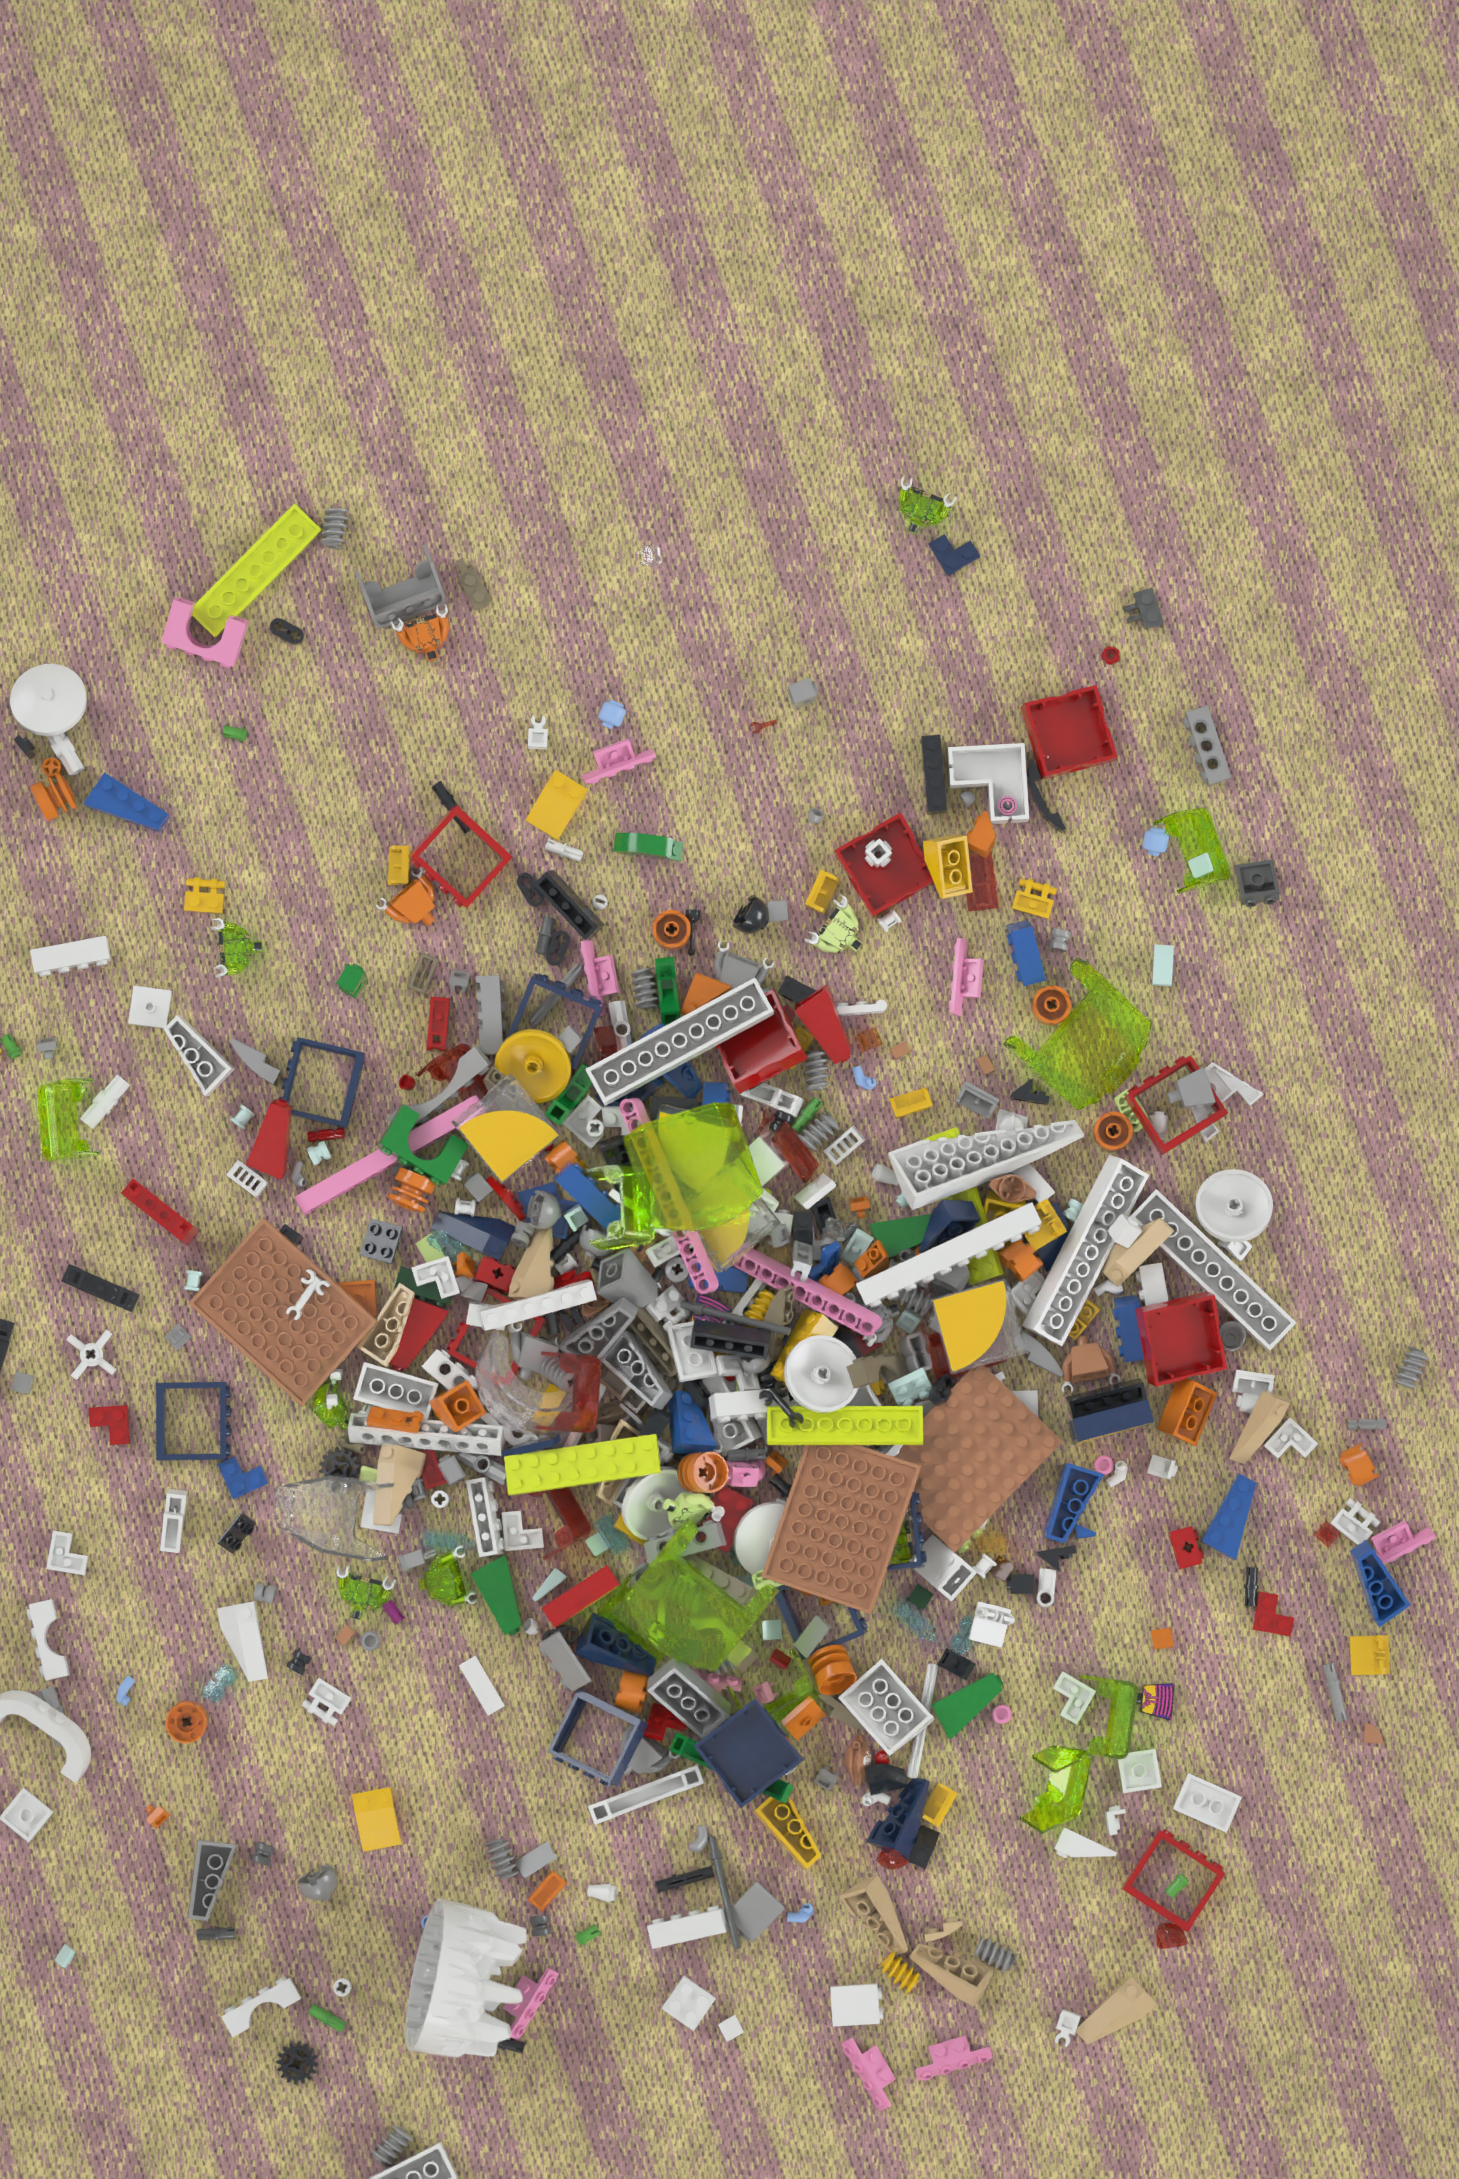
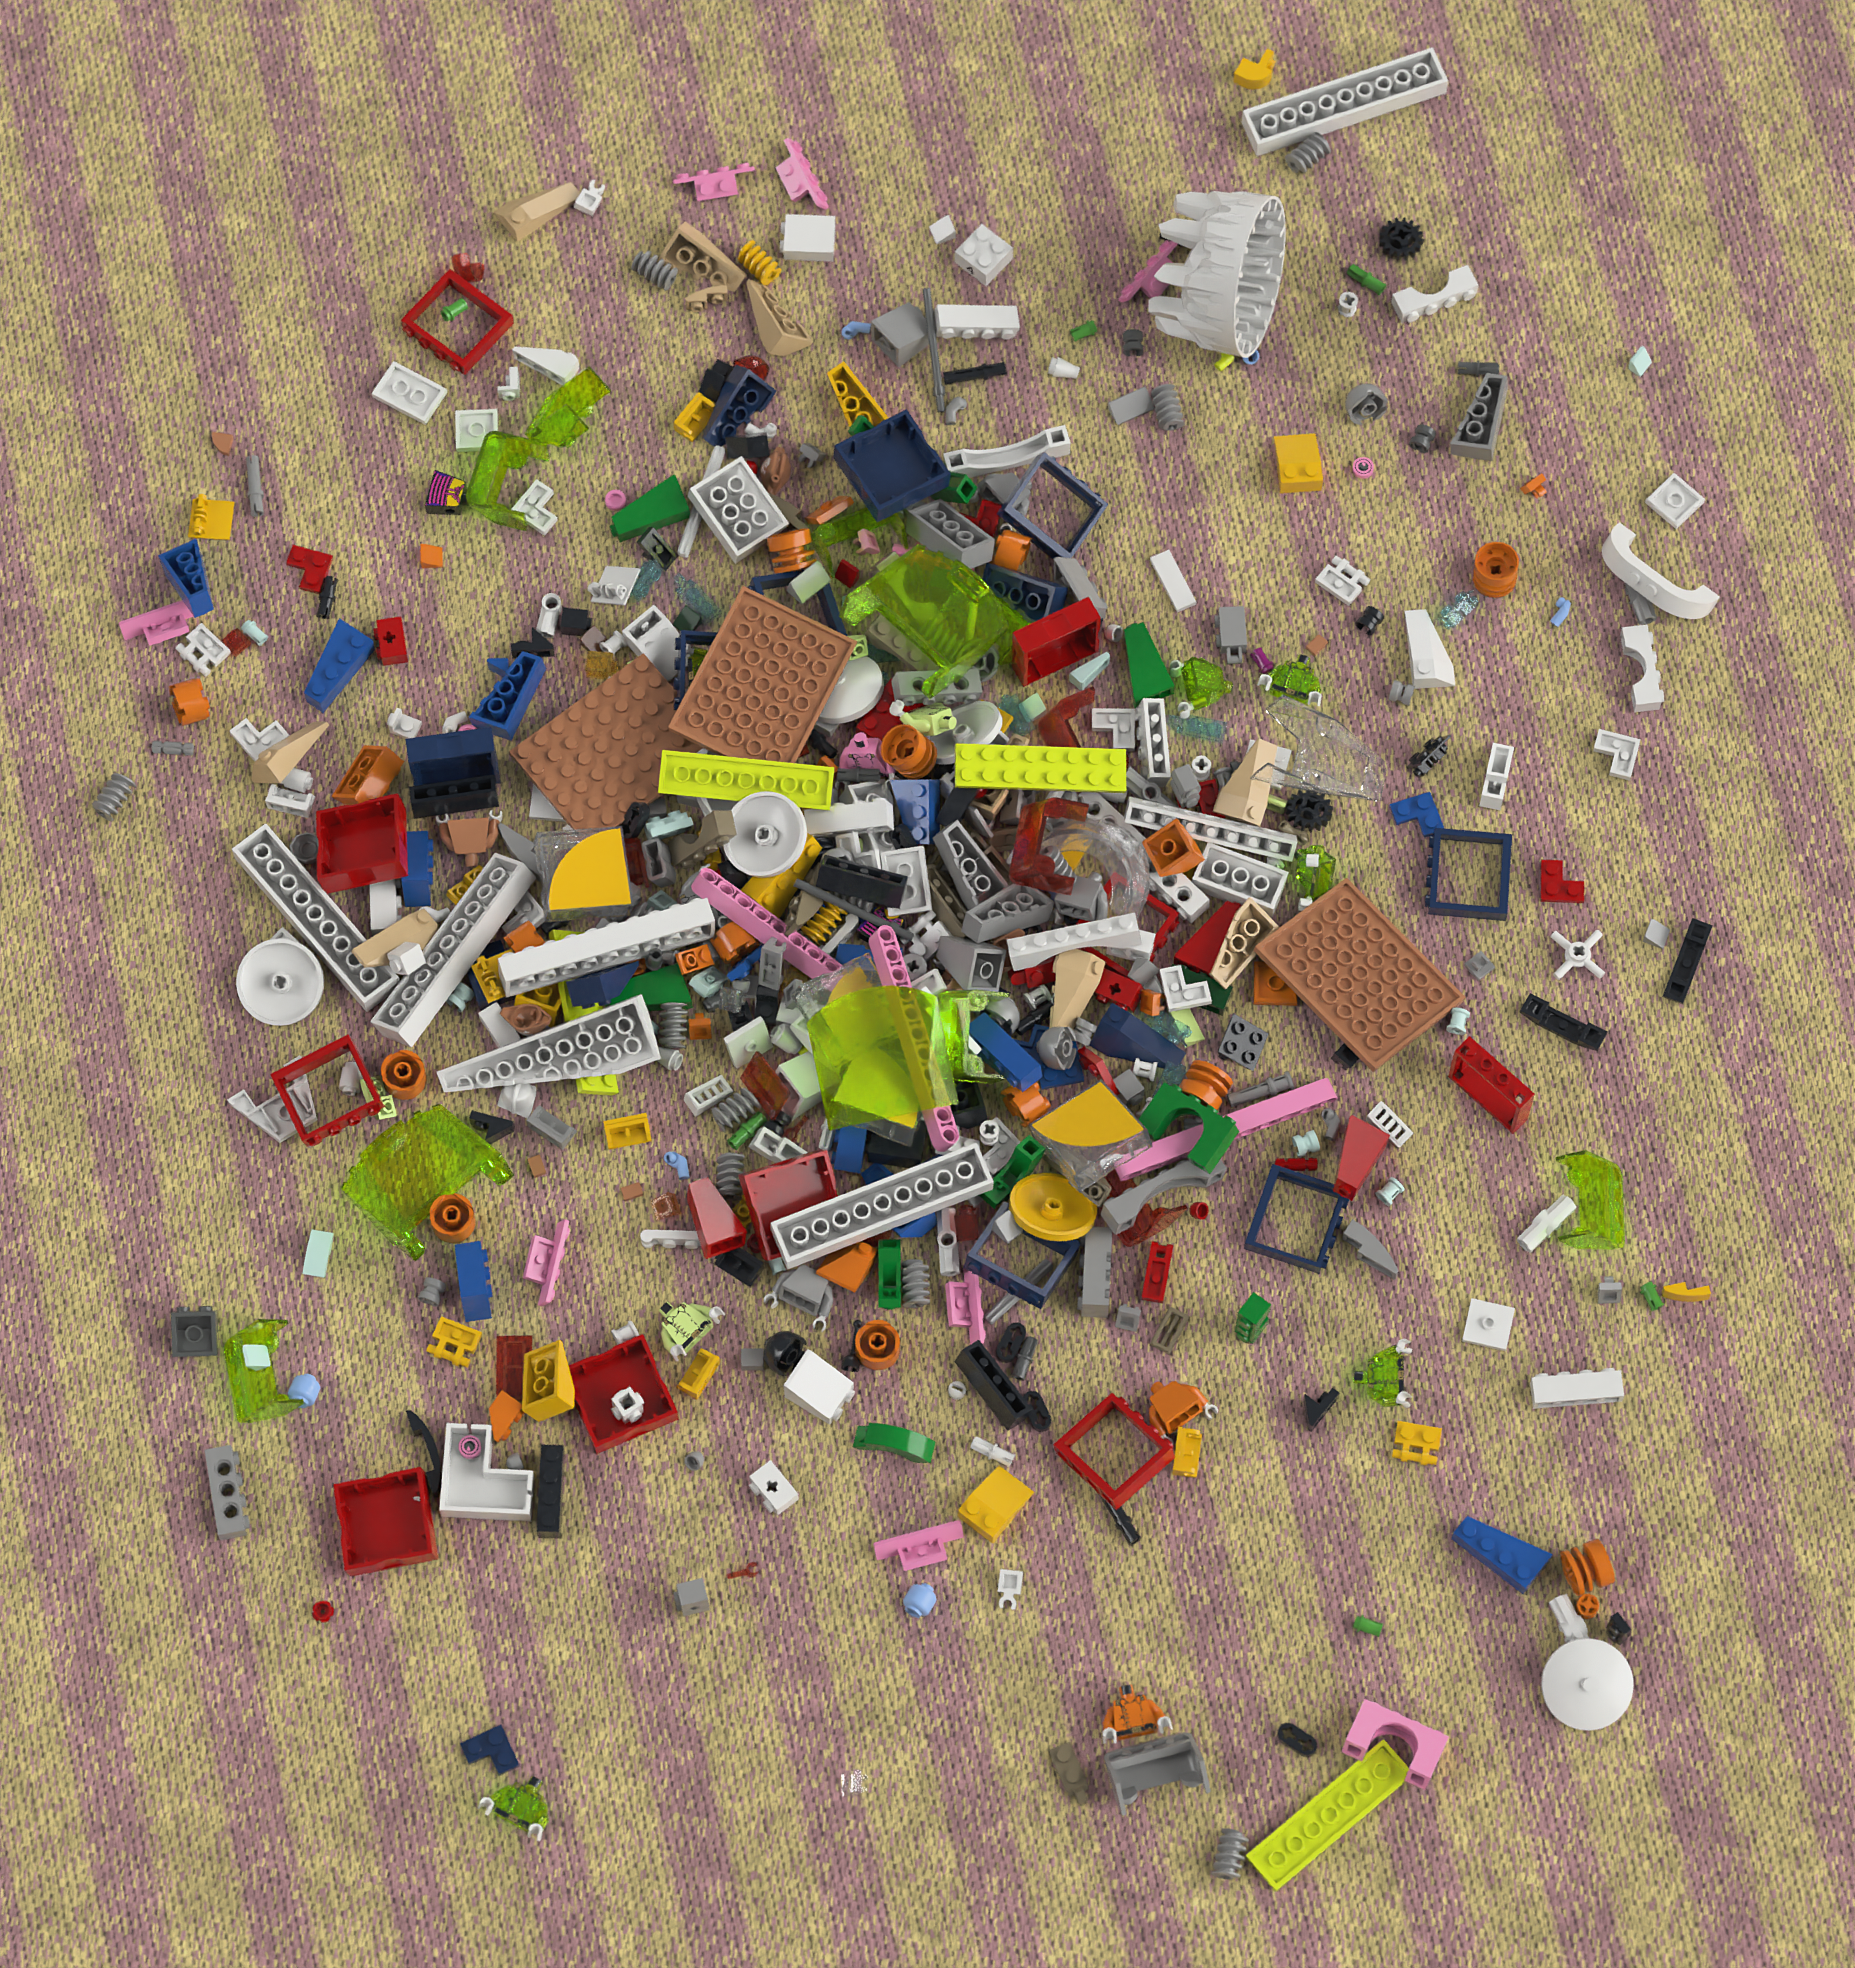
camera: 170 degrees left, 15 degrees down
(199, 1055) = (1435, 1261): white wedge -> none
(291, 911) = (1314, 1411): none -> black slope
(314, 1283) = (1323, 993): white bar -> none
(316, 1819) = (1363, 467): none -> bright pink tile
(354, 1202) = (1270, 1086): none -> light grey pin
(370, 1640) = (1290, 636): light grey plate -> none
(394, 1419) = (1244, 843): orange plate -> none
(414, 1559) = (1236, 707): light grey piece -> none
(423, 1635) = (1231, 633): none -> light grey brick
(440, 1202) = (1171, 1075): none -> clear light blue hinge
(531, 1445) = (1098, 797): dark blue tile -> none
(547, 1891) = (1122, 375): orange plate -> none
(575, 1217) = (1025, 1038): light aqua panel -> none
(716, 886) = (818, 1388): none -> white slope
(735, 795) = (768, 1476): none -> white brick
(777, 1395) = (819, 822): black bar -> none
(786, 1200) = (785, 1039): none -> white brick
(881, 1200) = (672, 1025): none -> light grey piece
(1147, 608) = (270, 1661): dark grey hinge -> none
(1192, 1091) = (306, 1096): light grey torso -> none
(1311, 1544) = (249, 628): none -> light aqua pin

